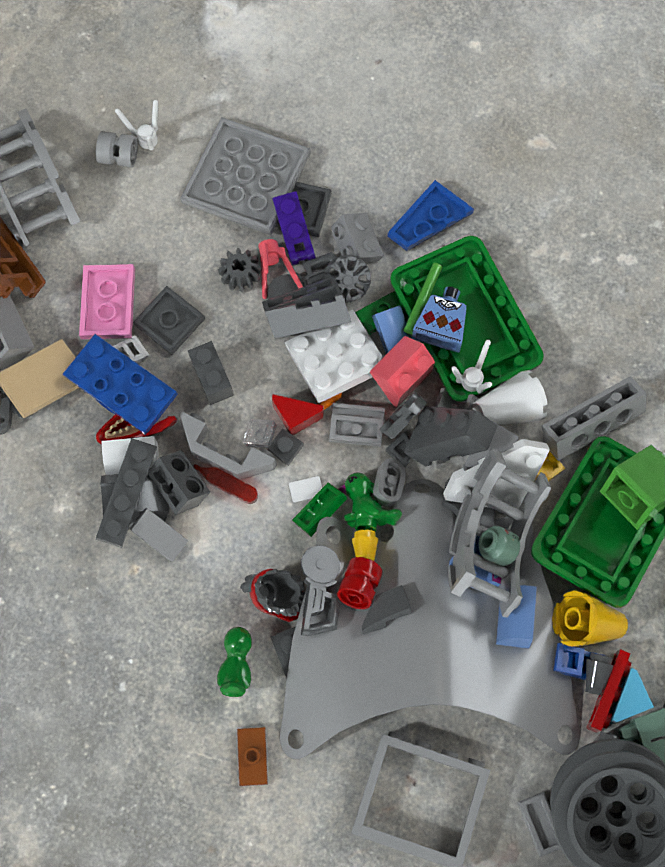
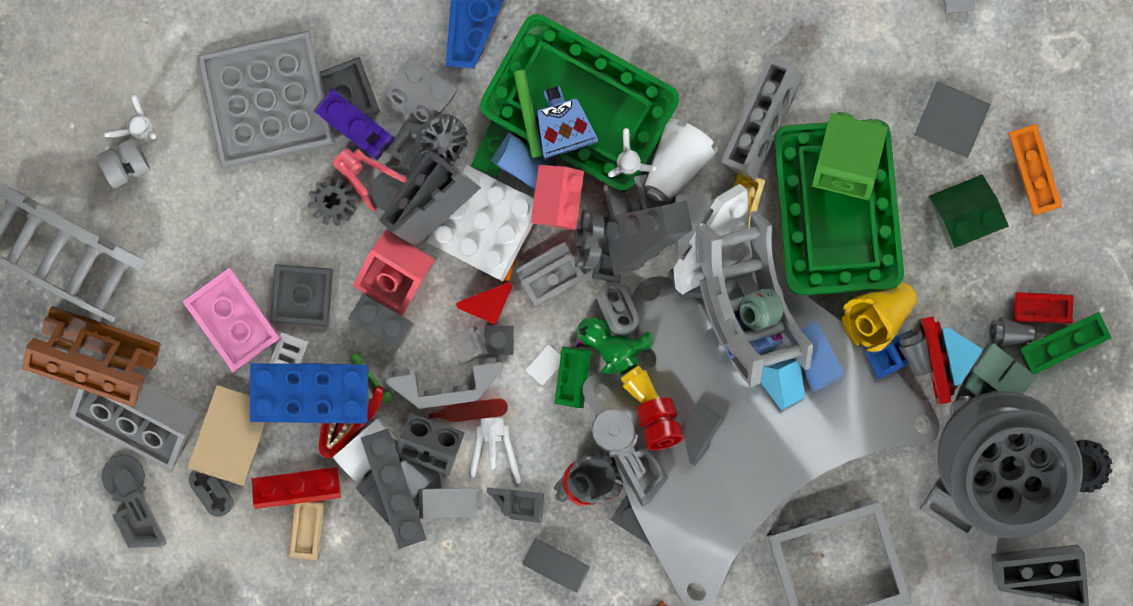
camera: 40 degrees left, 15 degrees up
(44, 484) = (306, 530): none -> tan tile
(60, 448) = (296, 488): none -> red plate
(174, 430) = (386, 396): none -> bright green hinge
(204, 640) = (556, 565): none -> dark grey slope
(211, 576) = (518, 504): none -> dark grey slope
(230, 507) = (492, 430): none -> white plant
(234, 672) = (604, 574): green animal -> none
(245, 345) = (393, 272): none -> coral slope
(477, 615) = (784, 382): none -> medium azure slope

